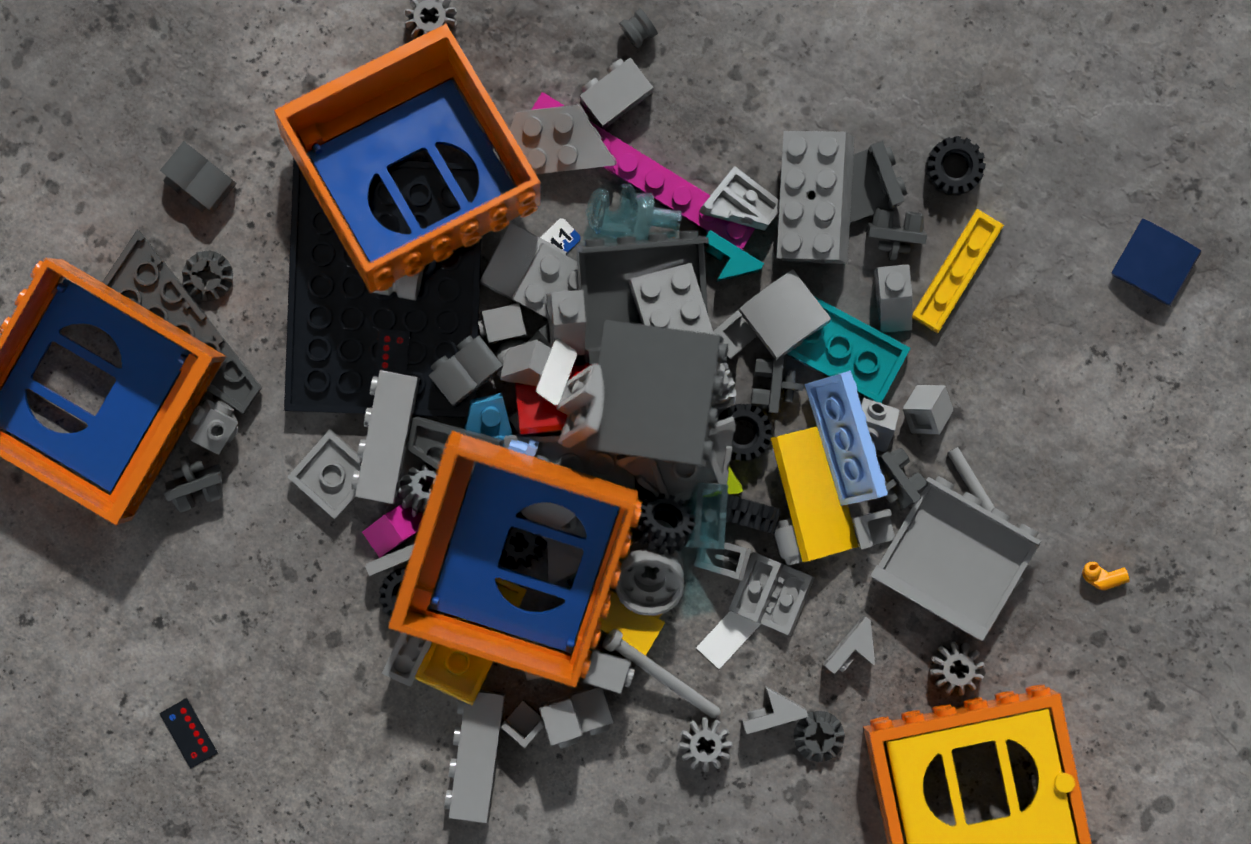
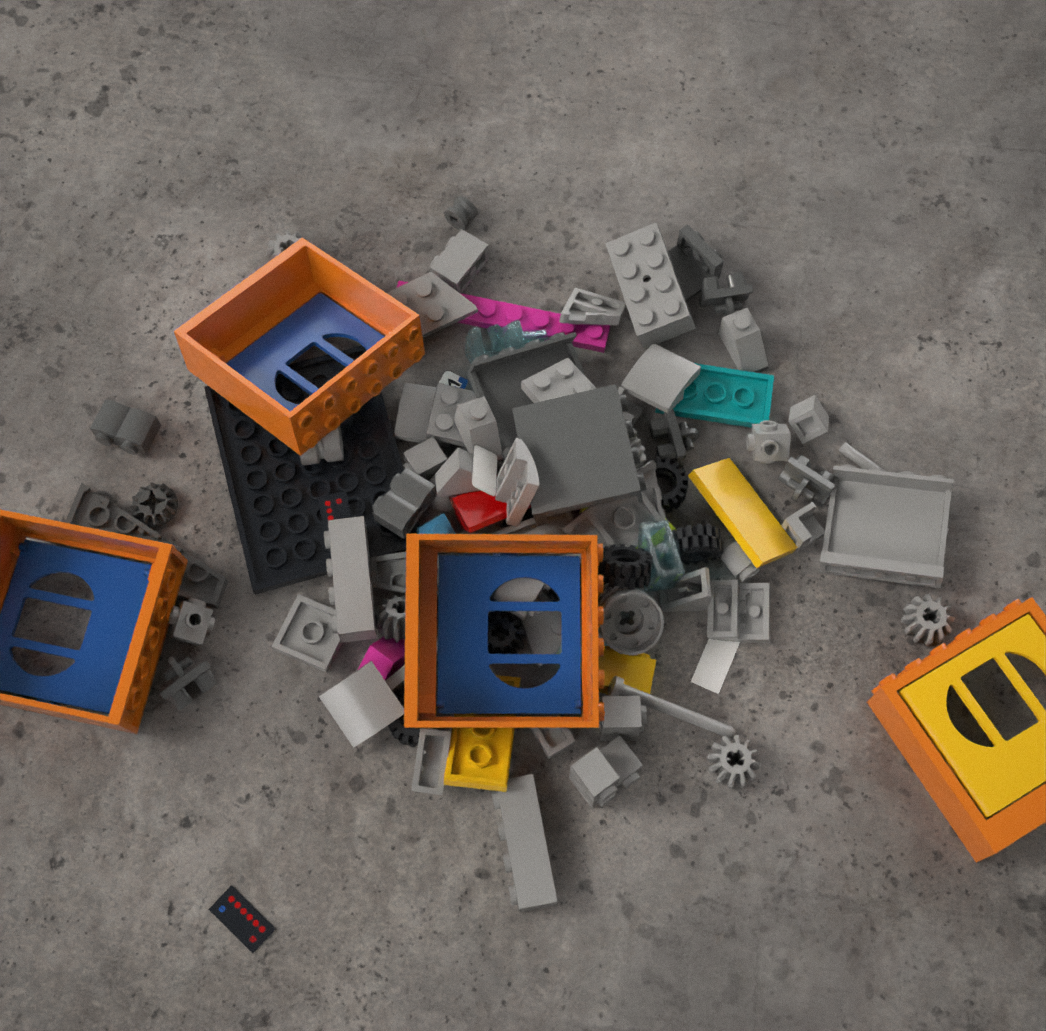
camera: 20 degrees left, 20 degrees down
(359, 571) = (362, 704): none -> light grey slope
(523, 724) = (559, 799): light grey panel -> none
(739, 262) = (605, 353): teal slope -> none
(782, 712) = (789, 707): light grey slope -> none
(808, 726) = (828, 734): dark grey gear -> none
(846, 439) = (752, 454): light blue plate -> none
(857, 639) = (832, 627): light grey slope -> none
(957, 271) = (785, 312): yellow tile -> none
(974, 166) = (751, 223): black tyre -> none
(1102, 579) = (1016, 509): light orange arm -> none
(1156, 262) = (940, 257): dark blue slope -> none

